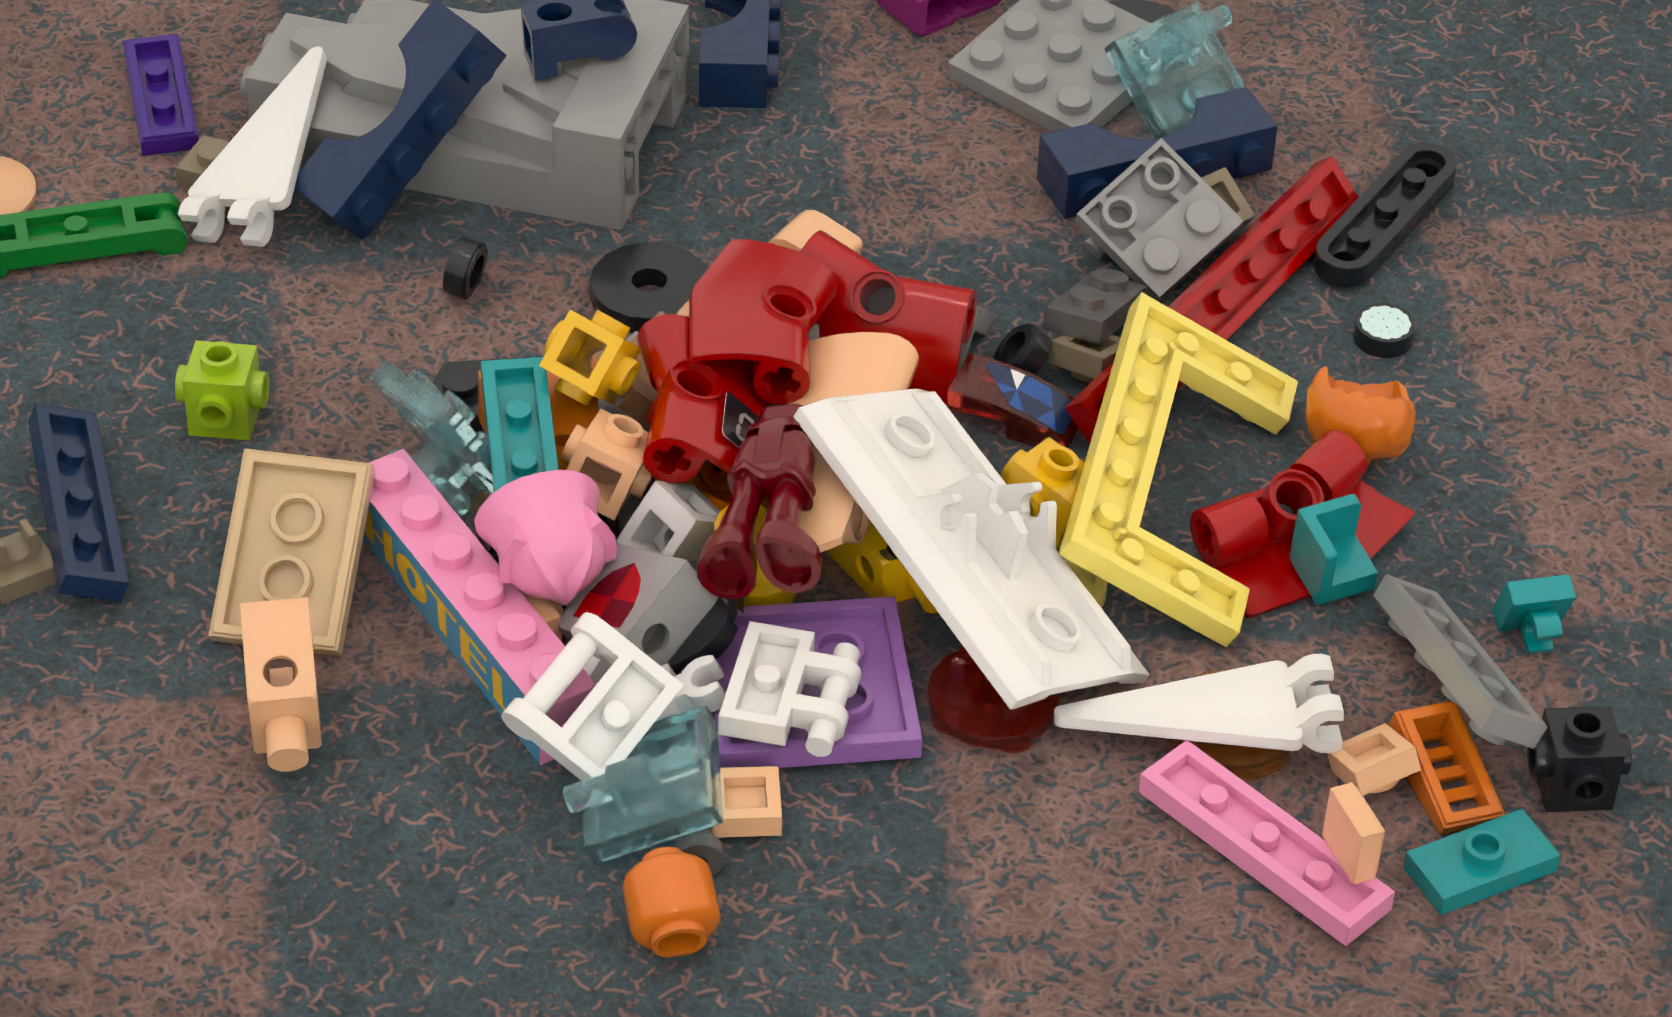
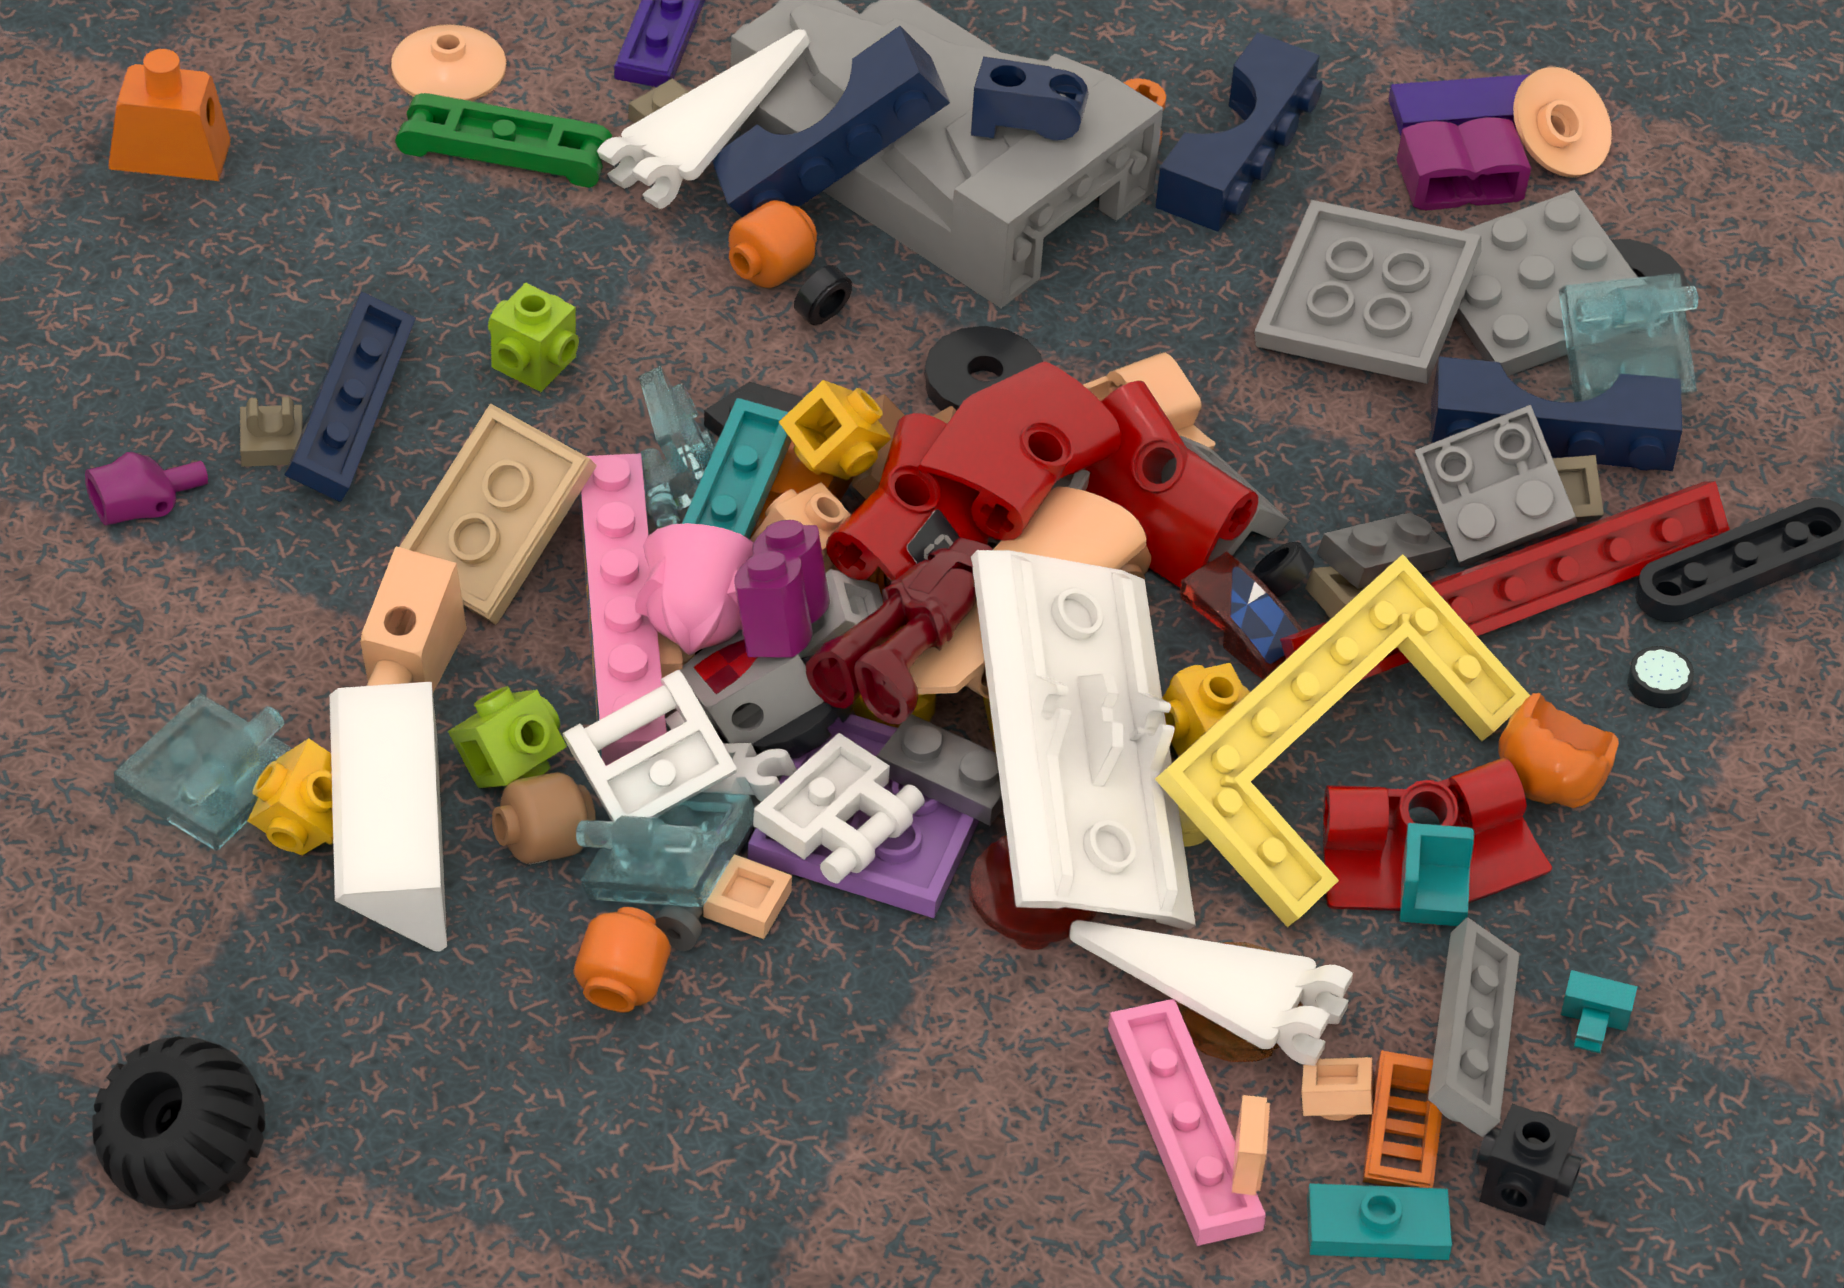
camera: 25 degrees right, 5 degrees up
(156, 885) = (203, 769): none -> clear light blue plate
(274, 872) = (296, 799): none -> yellow brick
(376, 844) = (388, 808): none -> white slope
(393, 235) = (772, 244): none -> orange head
(434, 745) = (508, 737): none -> lime brick
(512, 804) = (541, 817): none -> medium nougat head
(637, 508) = (782, 590): none -> magenta brick
(864, 616) = (945, 768): none -> flat silver plate
(939, 106) = (1368, 291): none -> light grey plate

